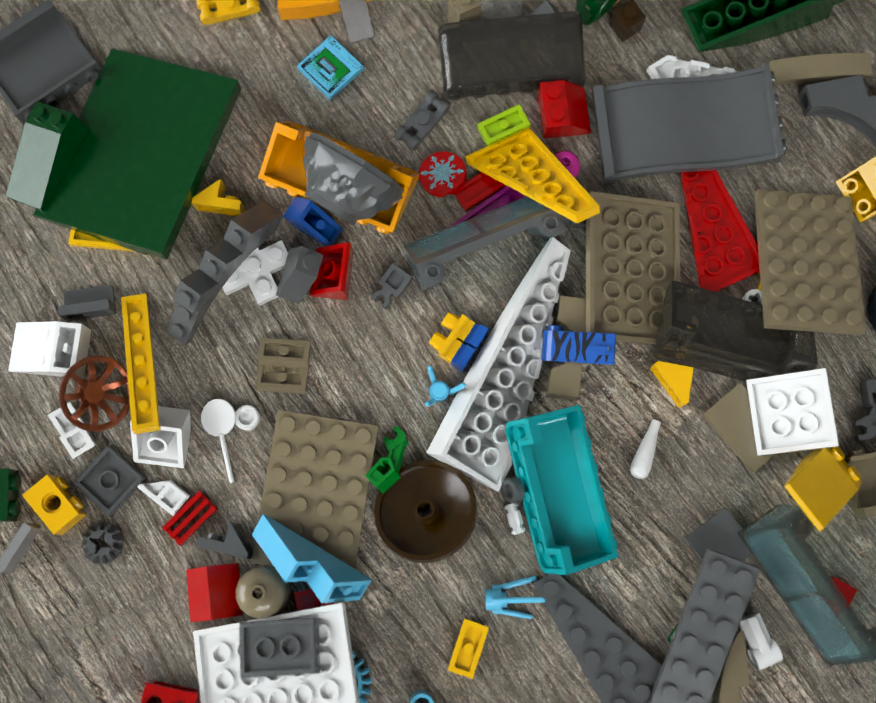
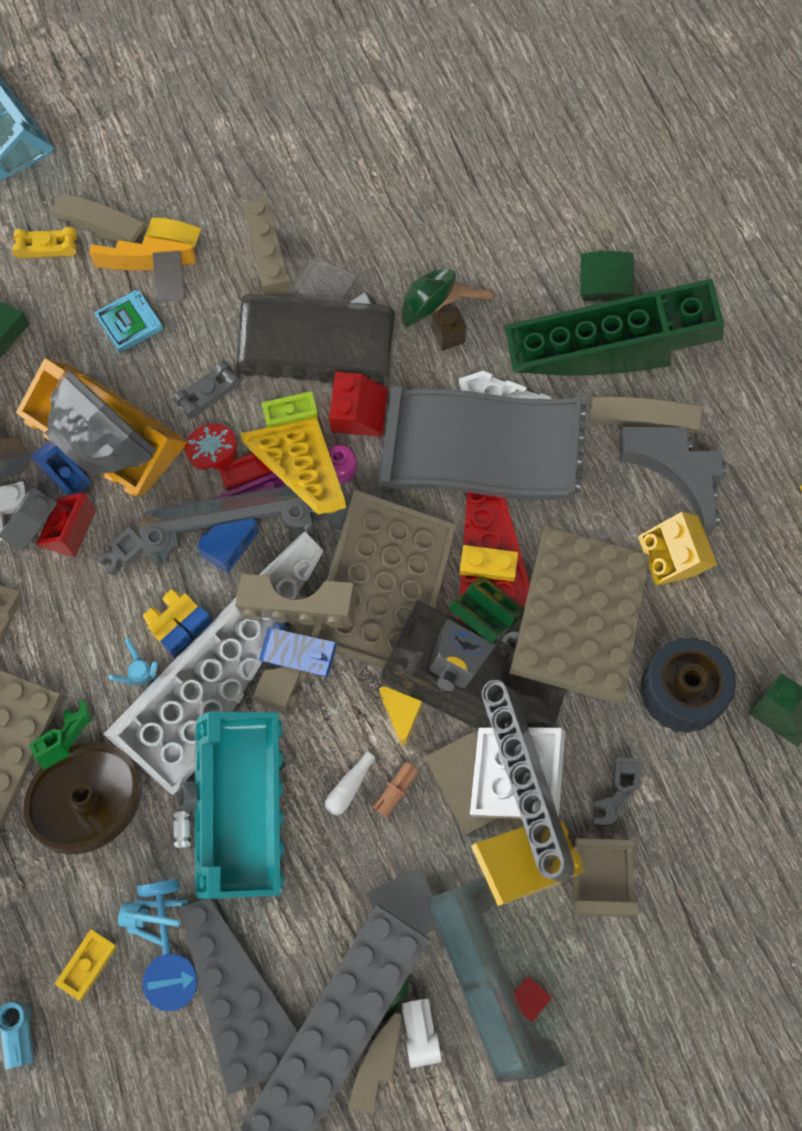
camera: 15 degrees right, 10 degrees down
(481, 263) = (227, 543): none -> blue slope
(539, 643) = (170, 978): none -> blue piece
(603, 301) = (331, 604): none -> dark tan arch
(686, 446) = (396, 789): none -> nougat axle
(717, 322) = (457, 655): none -> dark grey torso
(718, 233) = (488, 563): none -> yellow plate
(730, 275) = (486, 609): none -> dark green slope
(820, 424) = (535, 789): none -> dark grey beam

